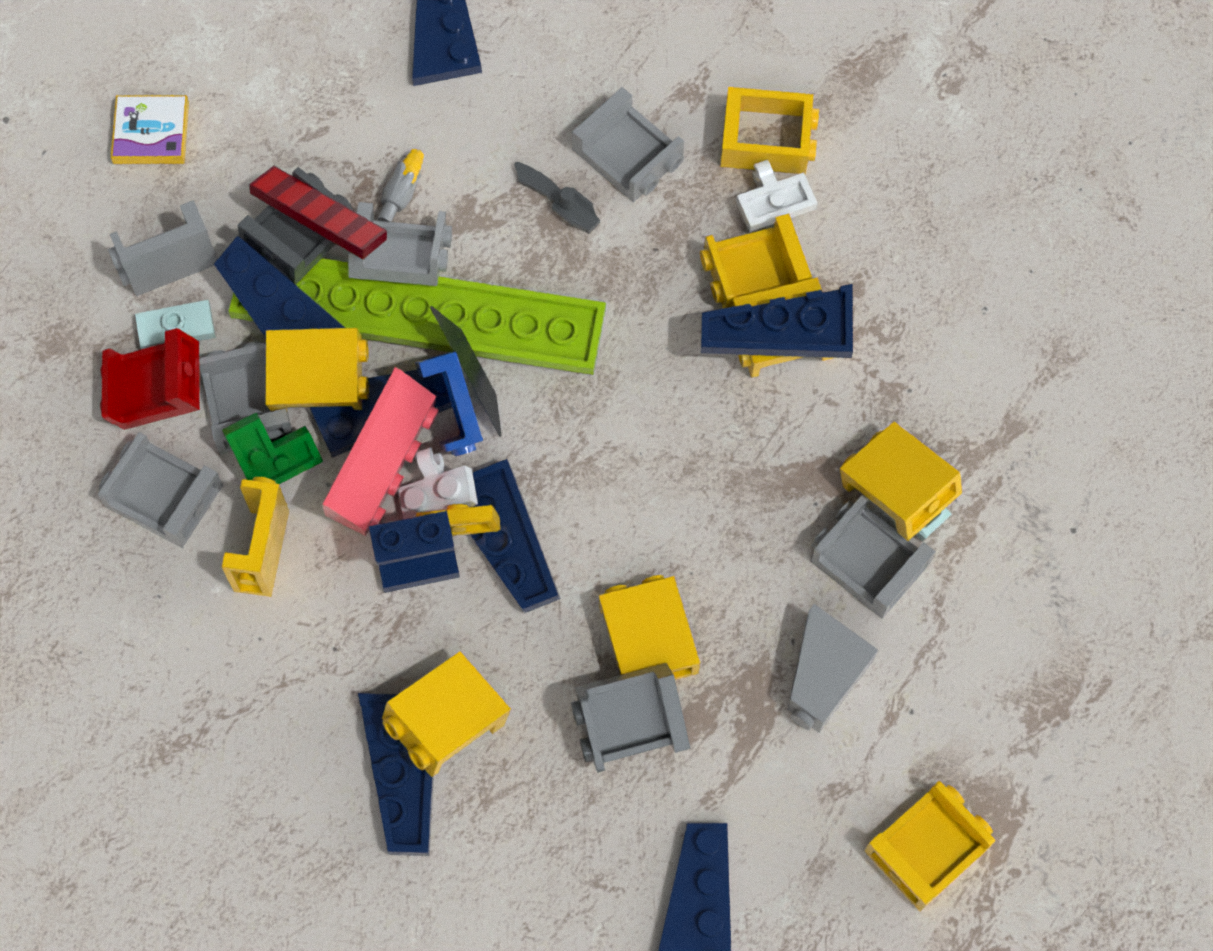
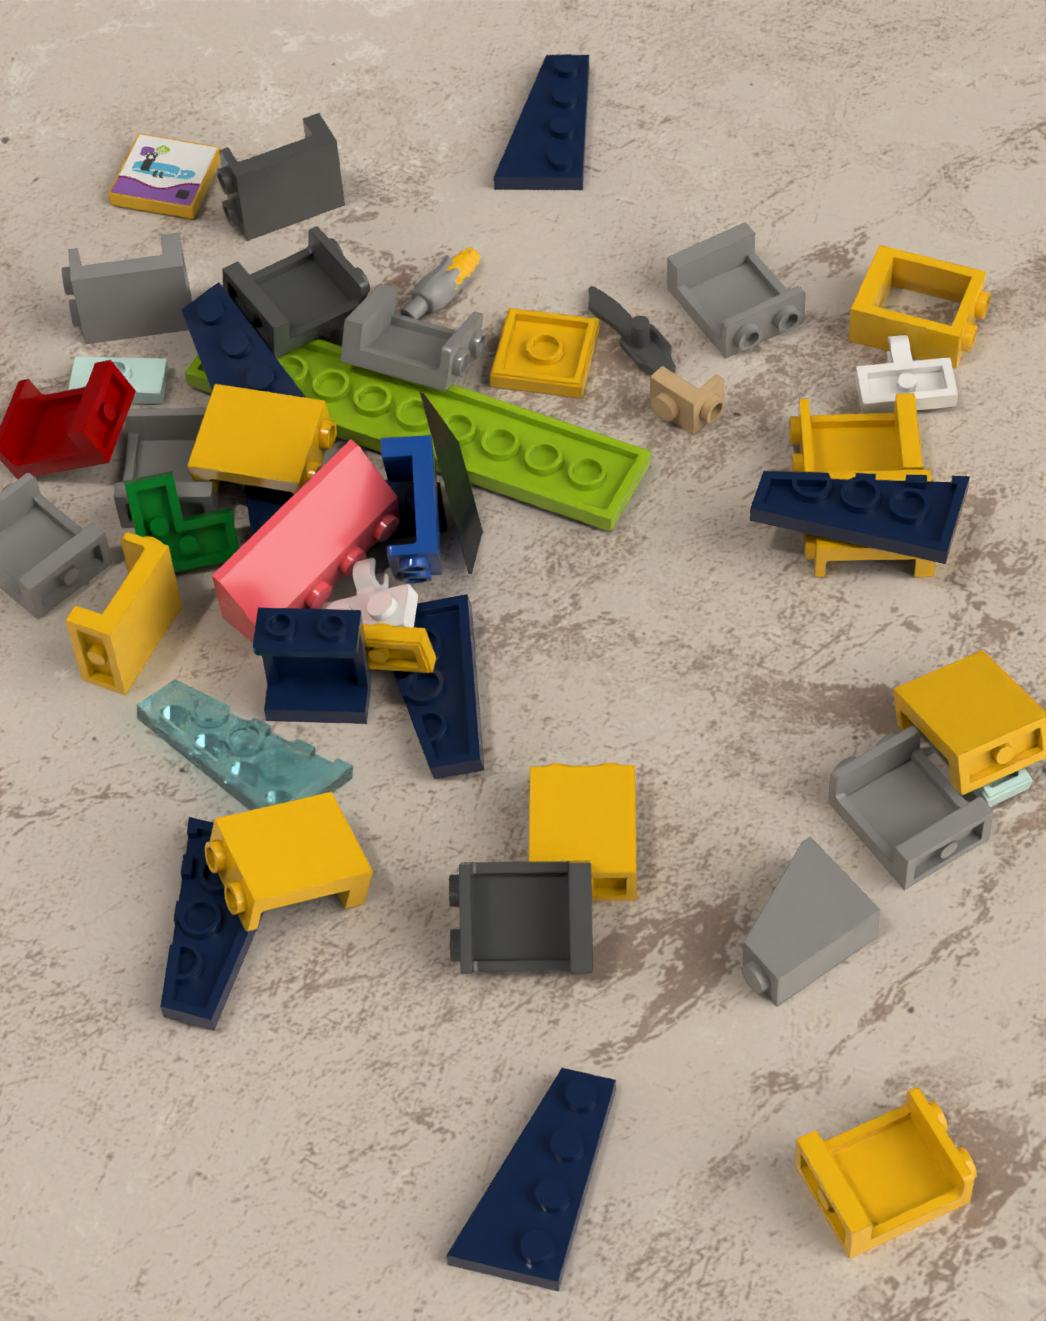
camera: 20 degrees right, 15 degrees down
(254, 126) = (283, 183): none -> dark grey panel
(318, 212) = (324, 276): tile -> none
(389, 634) = (238, 752): none -> clear light blue wing
(497, 228) = (545, 352): none -> yellow tile
(618, 255) = (685, 404): none -> tan bracket

